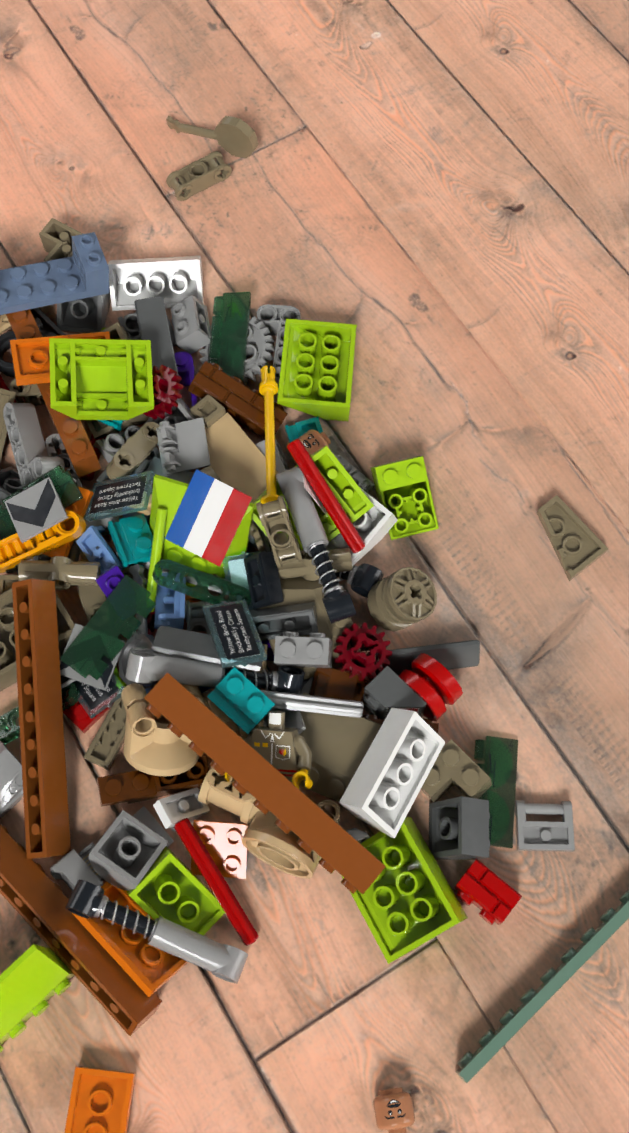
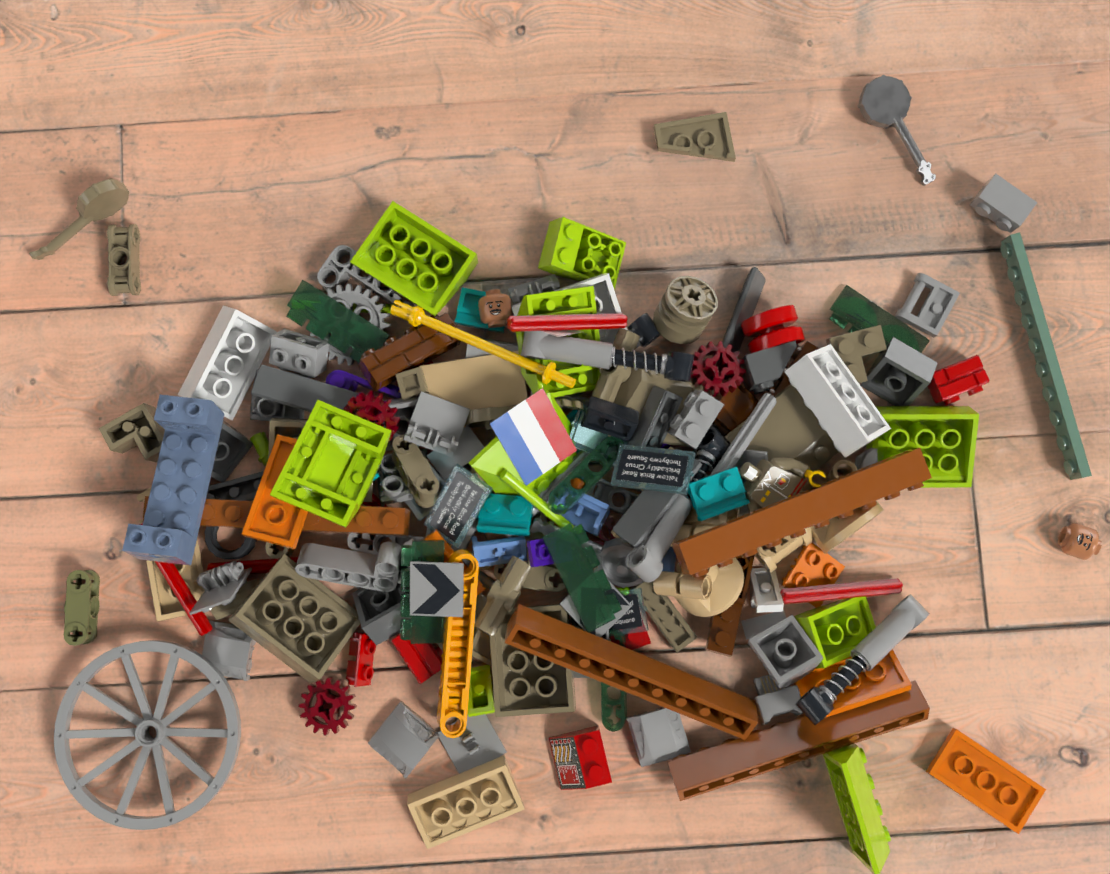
camera: 60 degrees left, 15 degrees up
(275, 519) = (587, 380): dark tan piece -> none

